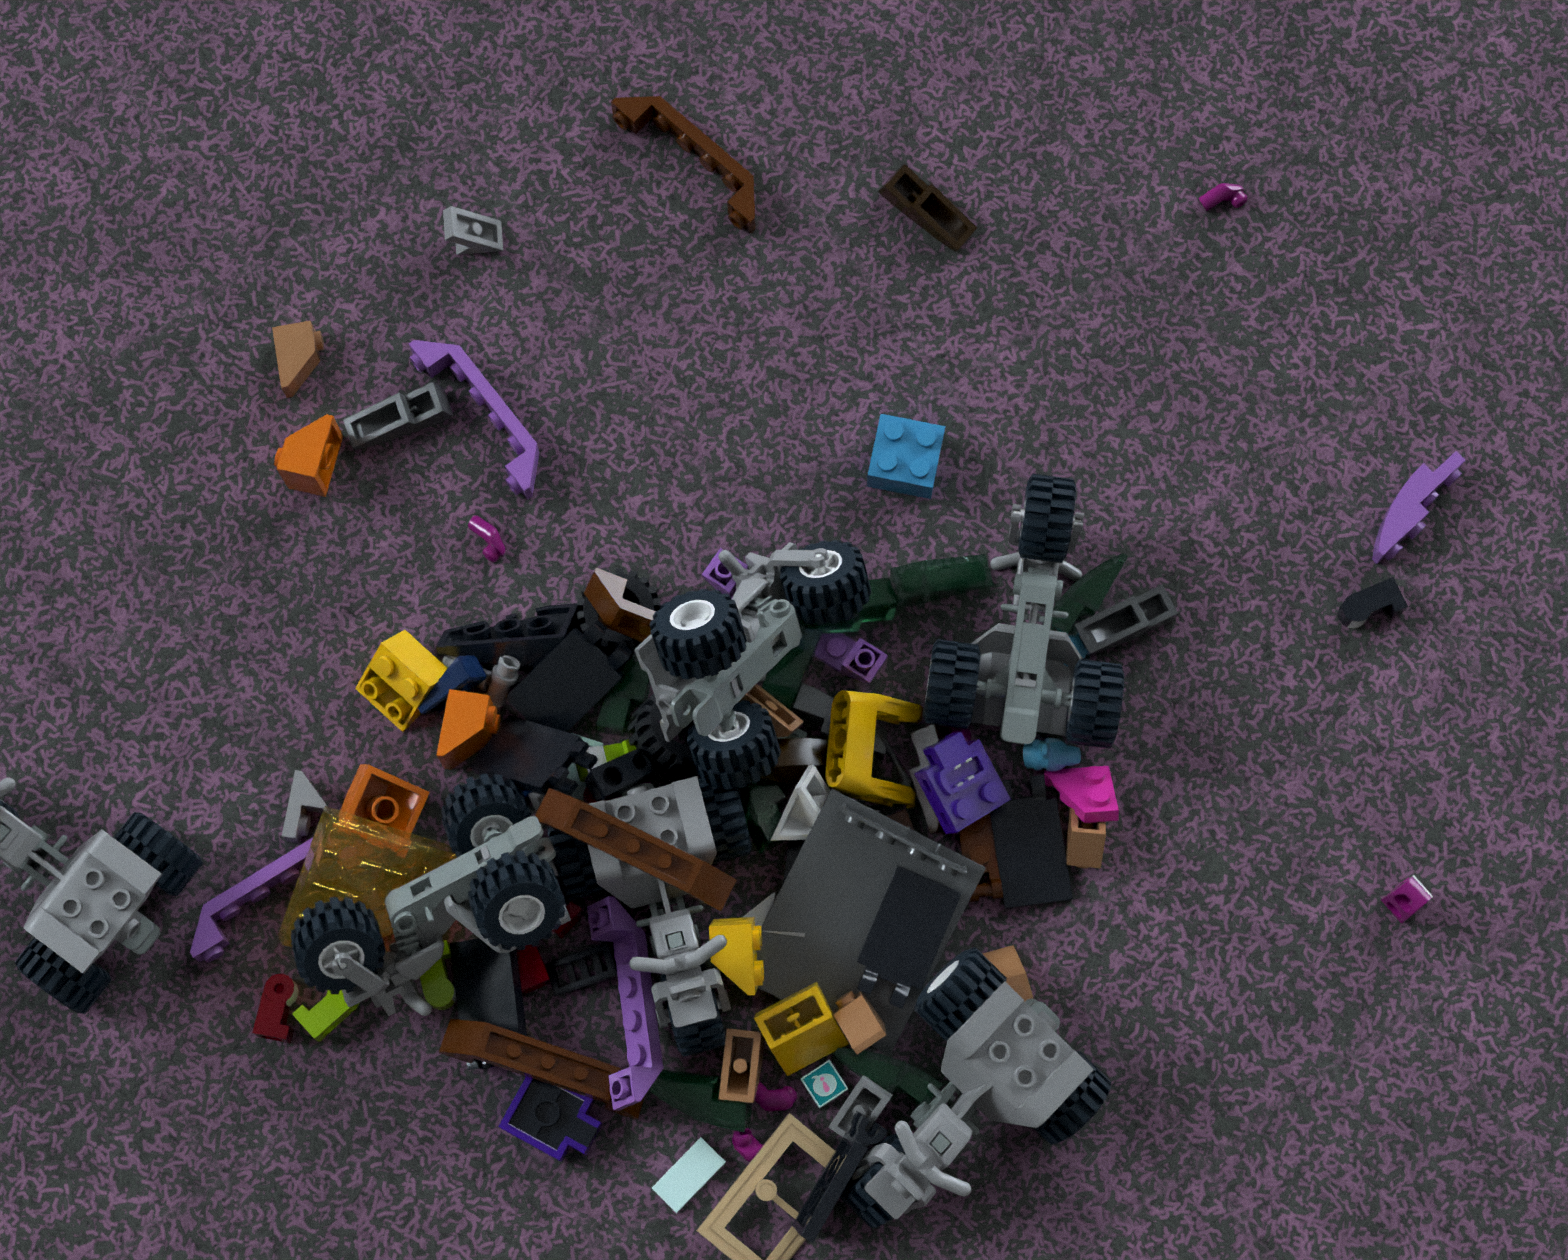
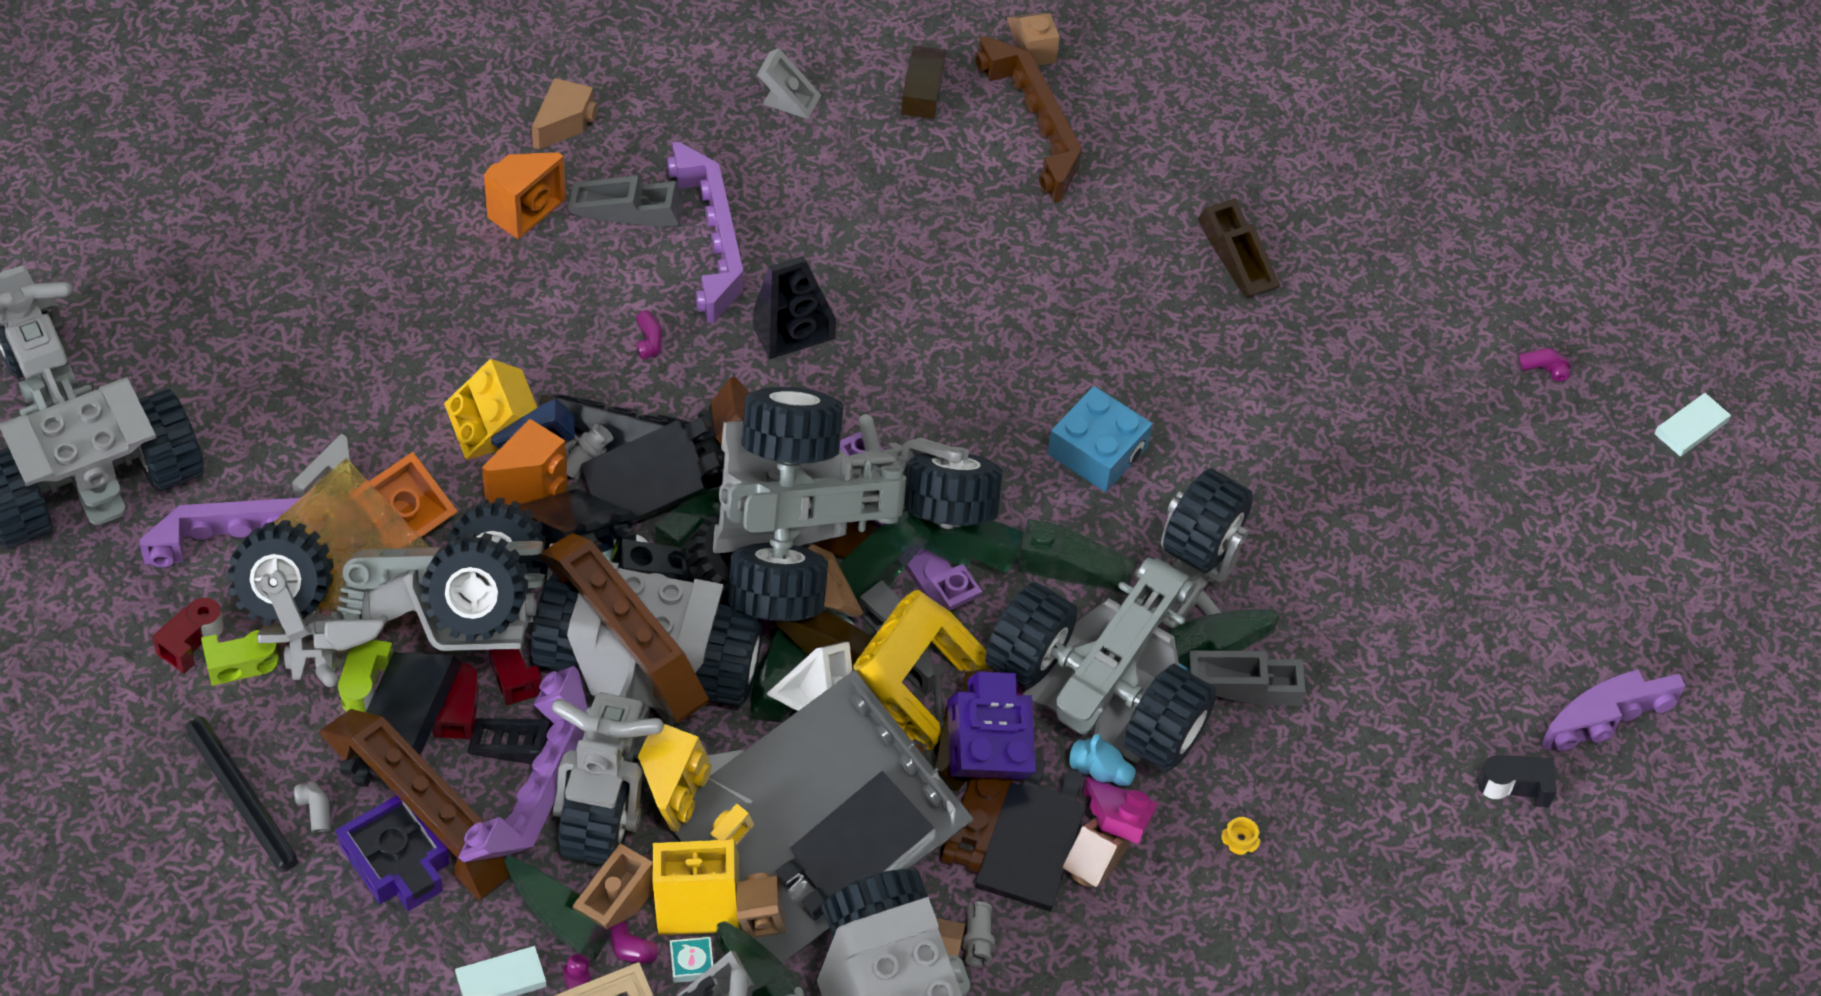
camera: 20 degrees right, 20 degrees down
(400, 1125) = (241, 794): none -> black axle
(466, 1104) = (318, 805): none -> light grey arm
(582, 165) = (923, 82): none -> dark brown slope
(601, 471) = (792, 310): none -> black wedge
(651, 69) = (1037, 35): none -> medium nougat slope
(801, 968) = (732, 825): none -> yellow plate
(1032, 957) = (978, 940): none -> light grey pin
(1188, 754) = (1246, 828): none -> yellow plate
(1363, 197) = (1692, 424): none -> light aqua tile

